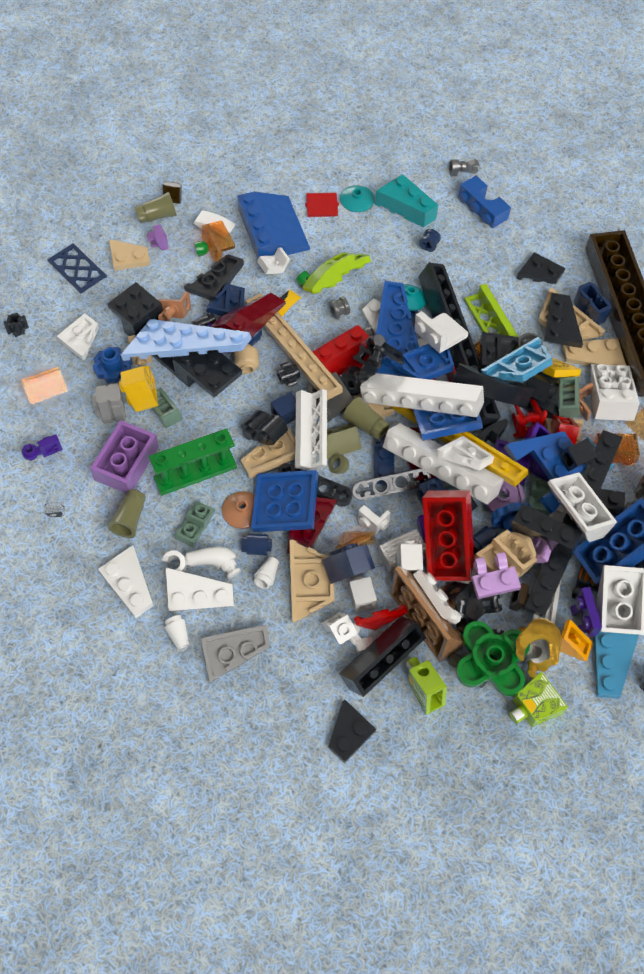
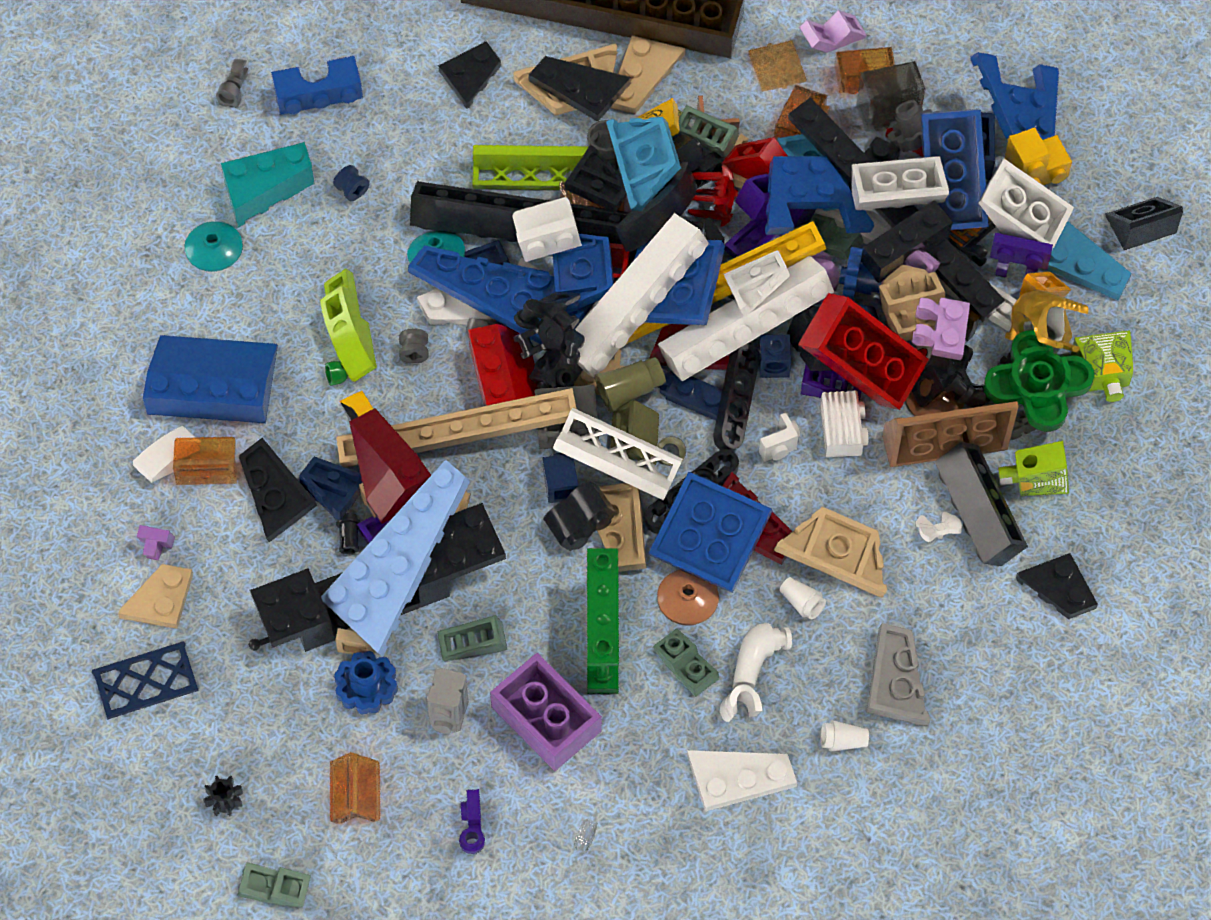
camera: 65 degrees left, 0 degrees up
(79, 336) = (289, 713): white wing -> none
(127, 516) = (638, 738): olive plant -> none
(139, 388) = (435, 648): yellow brick -> none
(156, 209) = (94, 523): olive plant -> none
(175, 191) = (70, 490): dark brown tile -> none
(175, 308) = (312, 559): nougat bracket -> none
(196, 592) = (796, 692): white wing -> none
(202, 248) = (205, 489): green hinge -> none
(256, 544) = (755, 594): dark blue brick -> none
(275, 263) = (286, 398): white bracket -> none
(288, 374) = (500, 454): black gear -> none
(322, 204) = (200, 297): red piece -> none
(340, 627) = (918, 537): white bracket -> none
(348, 562) = (845, 486): dark blue brick -> none
(353, 537) = (799, 479): clear orange slope -> none
(362, 594) = (882, 495): white brick -> none
(380, 618) = (930, 481): red tile -> none
(410, 556) = (868, 414): white brick -> none
(437, 597) = (938, 403): white plate -> none
(578, 454) = (819, 155): black brick -> none
(592, 303) = (569, 36): dark blue brick -> none
(613, 392) = (723, 78): white slope -> none

